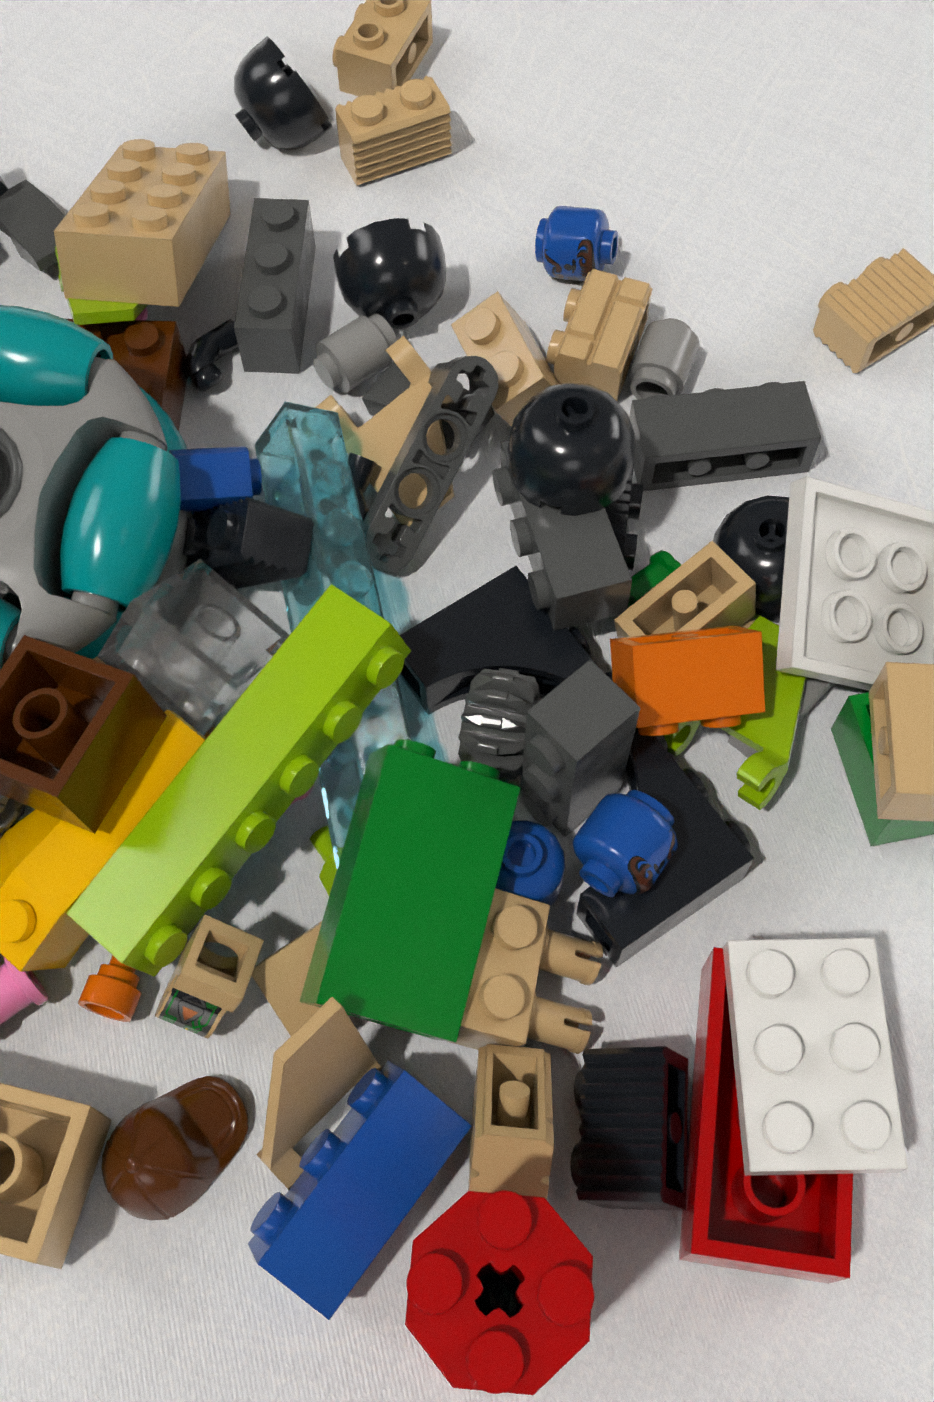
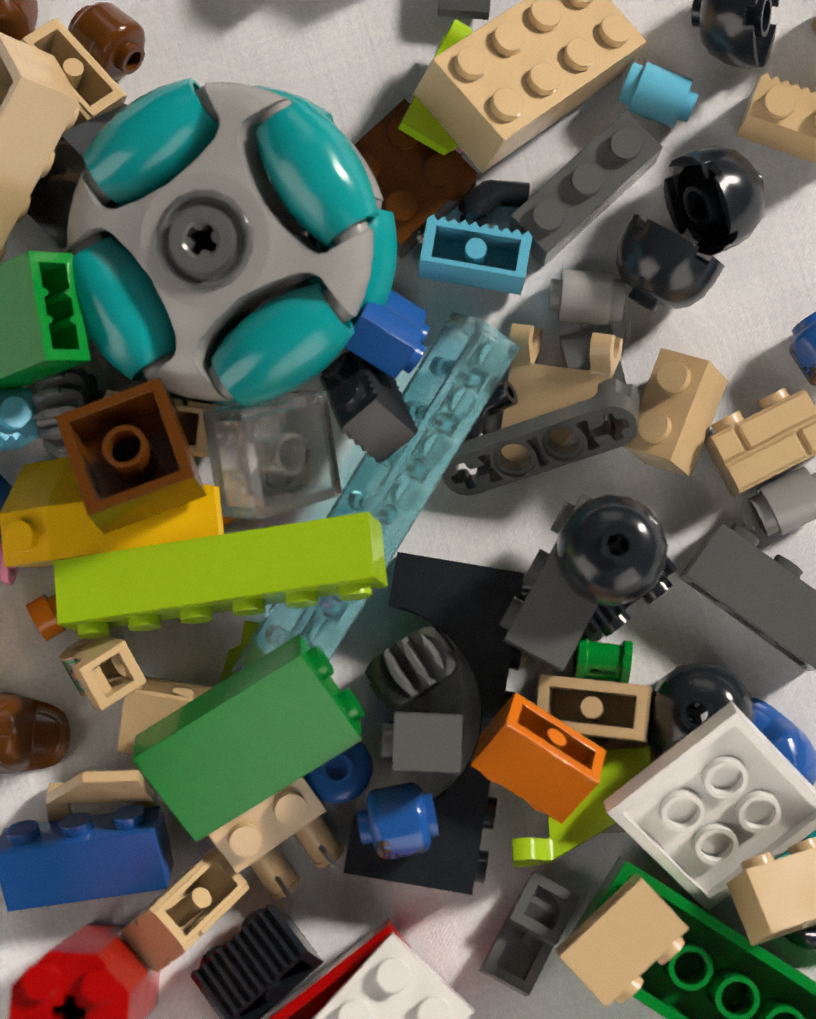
camera: 45 degrees right, 20 degrees up
(232, 384) = (474, 255): none -> medium azure brick
(269, 181) = (658, 94): none -> medium azure brick
(378, 192) = (715, 197): none -> black cylinder
(832, 864) = (529, 933): none -> dark grey slope

